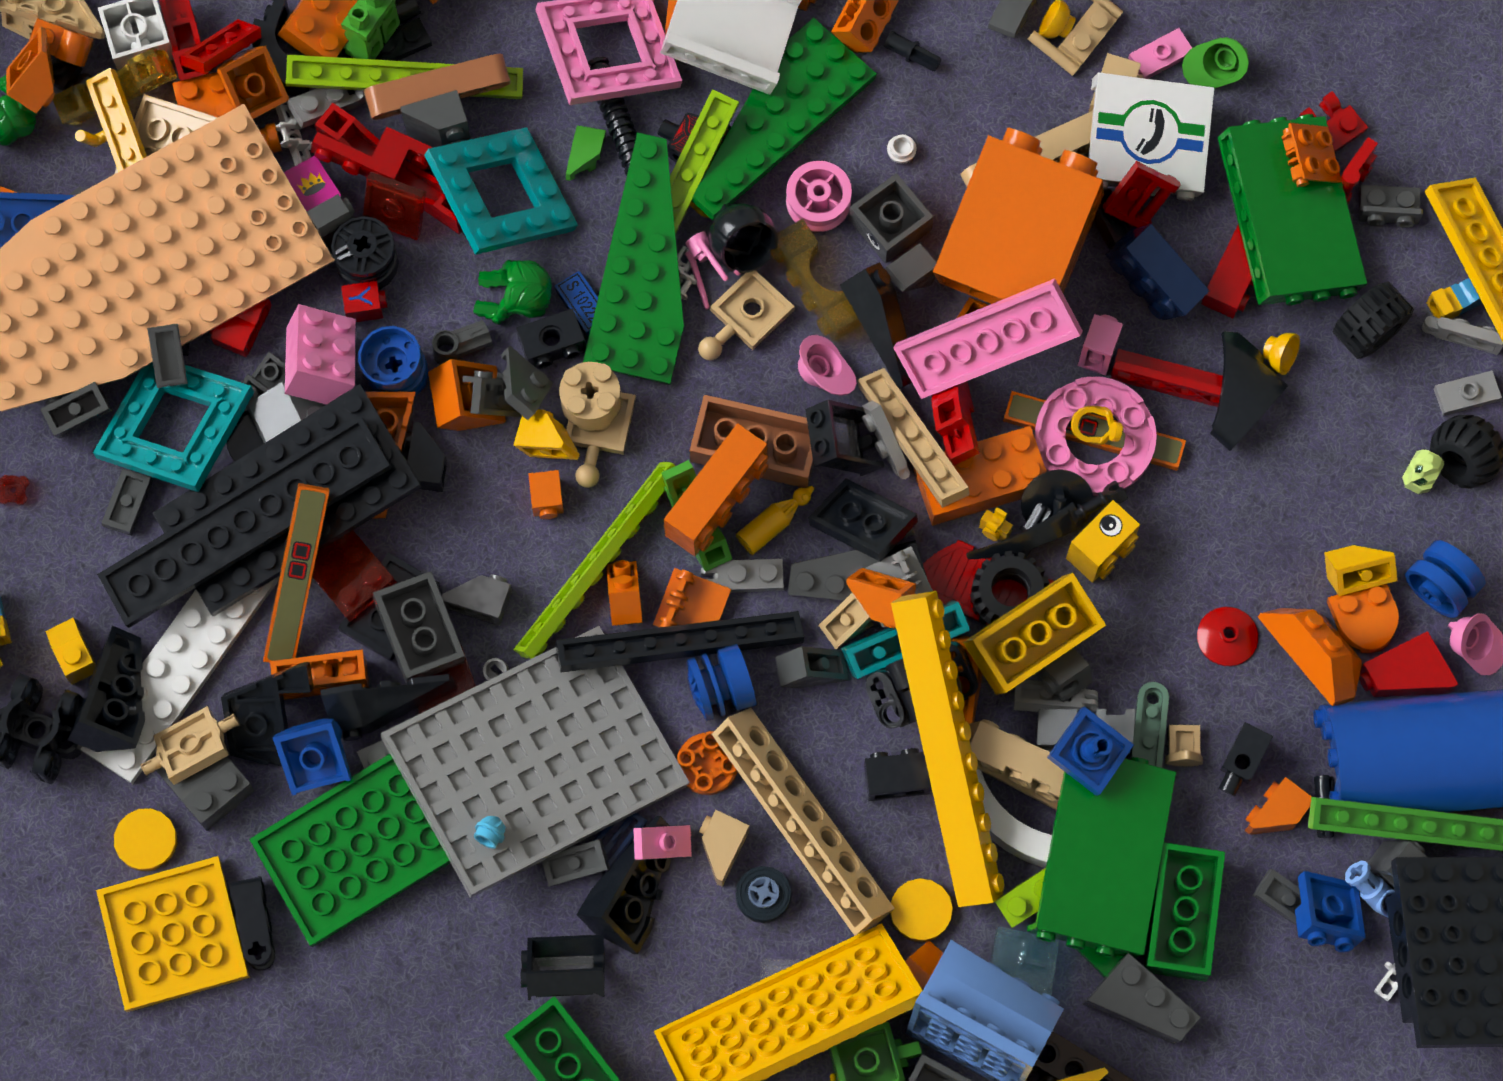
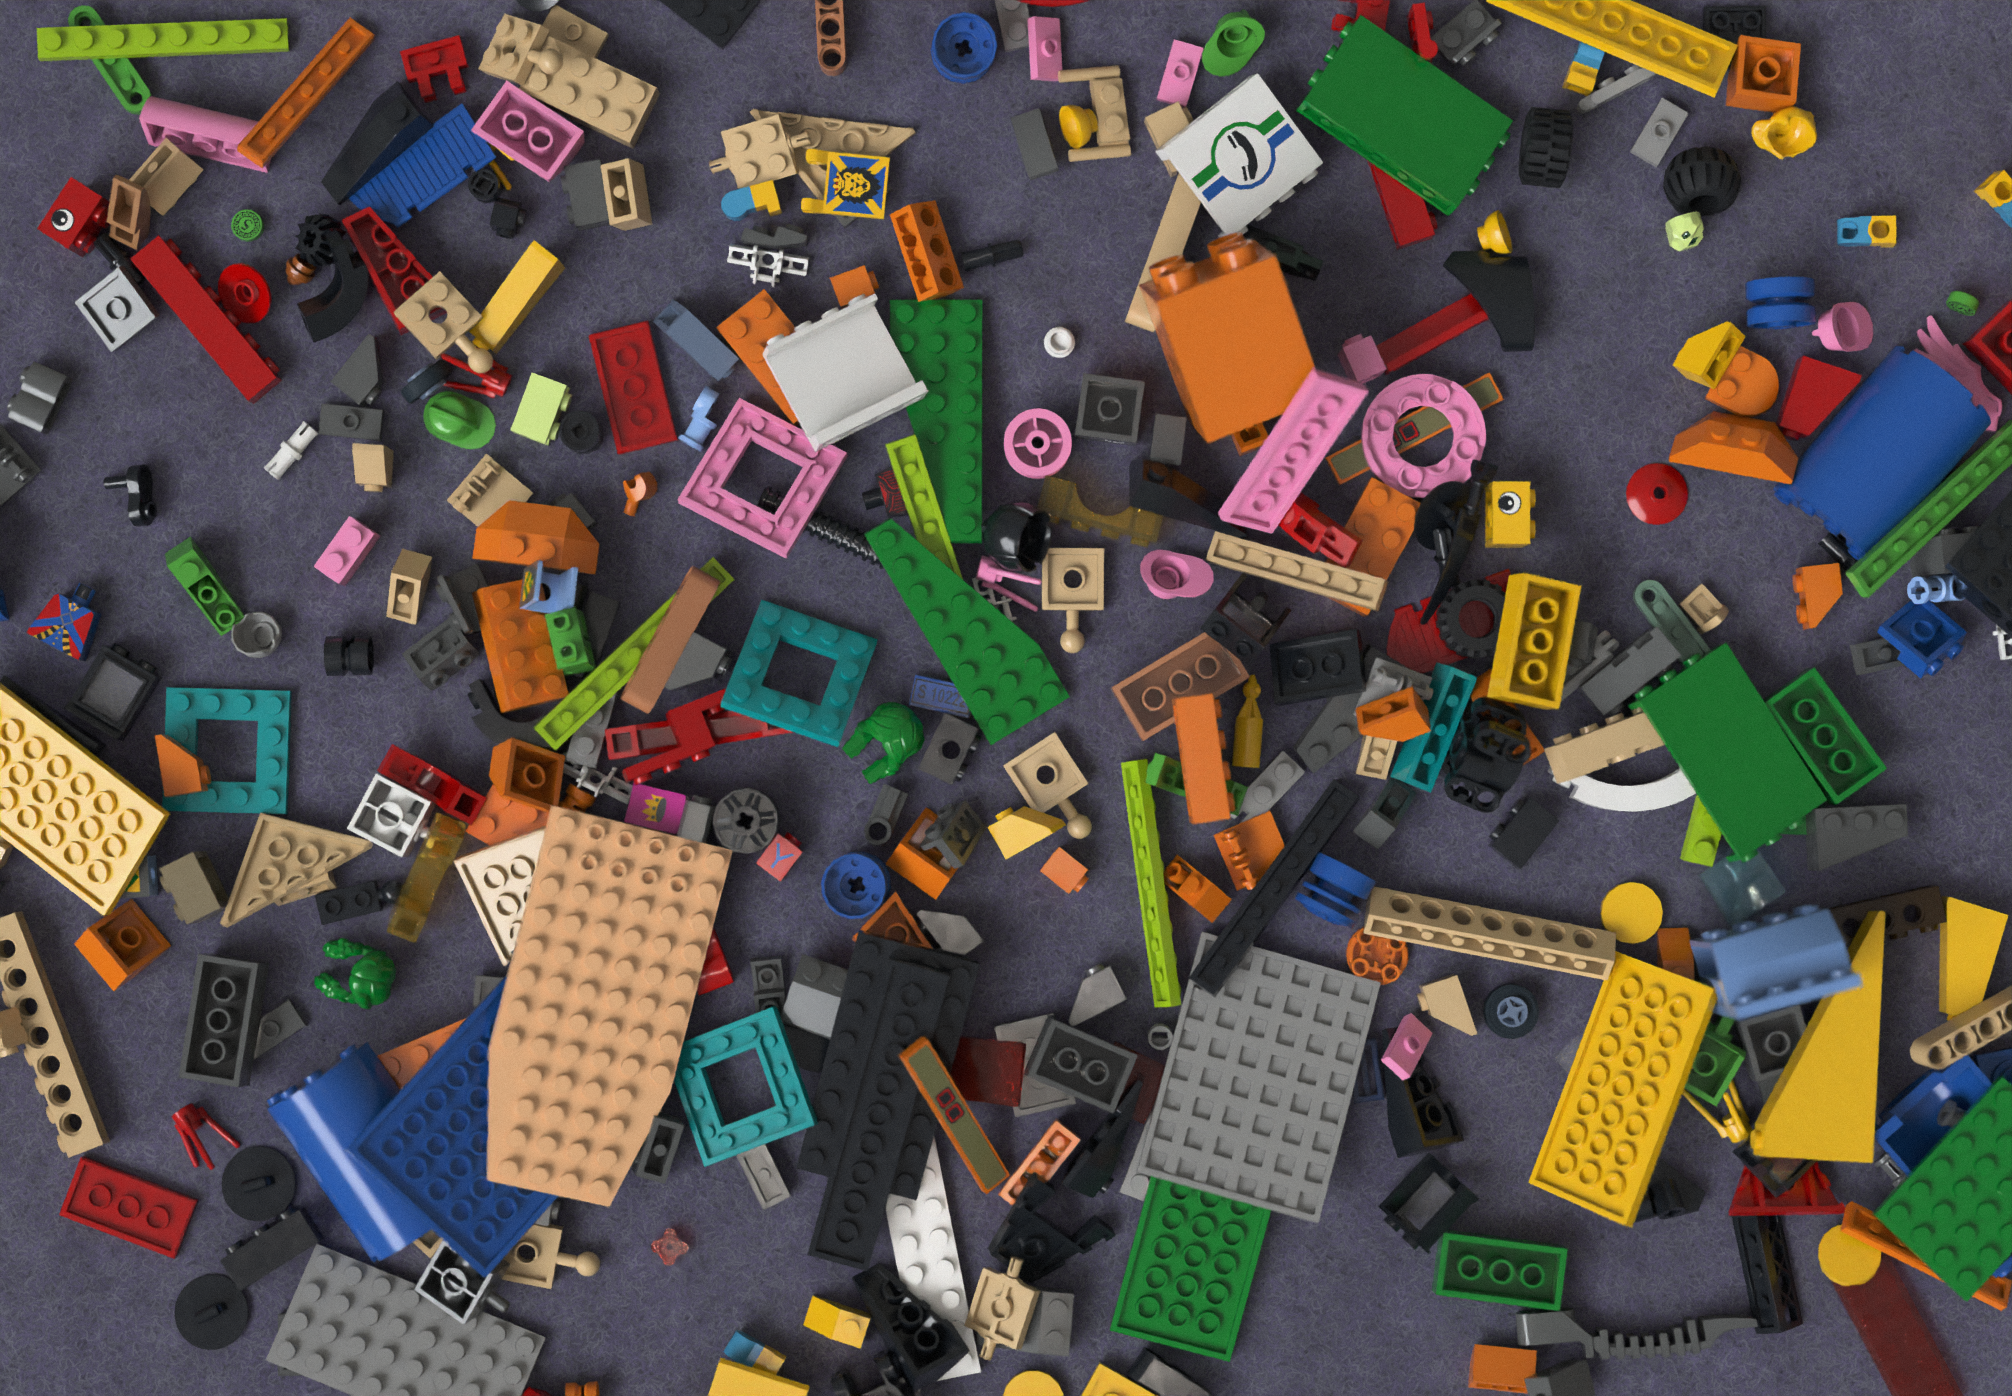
camera: 40 degrees left, 15 degrees up
(31, 74) = (355, 931): orange slope -> none
(65, 43) = (349, 879): orange plate -> none
(115, 119) = (463, 907): yellow plate -> none
(167, 355) = (688, 1045): dark grey tile -> none
(220, 46) = (477, 770): red plate -> none
(312, 755) = (1098, 1230): blue slope -> none
(319, 355) = (800, 934): bright pink brick -> none
(395, 205) = (731, 763): clear red tile -> none
(490, 831) = (1287, 1165): medium azure plate -> none
(524, 384) = (969, 806): dark grey wing -> none
(576, 863) = (1361, 1116): dark grey plate -> none
(585, 150) = (824, 575): bright green slope -> none
(590, 379) = (1025, 751): tan brick -> none
(887, 444) = (1278, 592): light grey hinge -> none
(948, 748) = (1555, 790): yellow brick -> none
(995, 525) = (1415, 576): yellow plate -> none
(1090, 751) = (1660, 693): blue plate -> none
(1115, 428) = (1438, 421): yellow piece -> none
(1134, 192) = (1281, 212): red plate -> none
(1156, 273) = (1353, 267): dark blue brick -> none
(1251, 745) = (1752, 568): black torso -> none
(1314, 154) = (1384, 58): orange hinge -> none

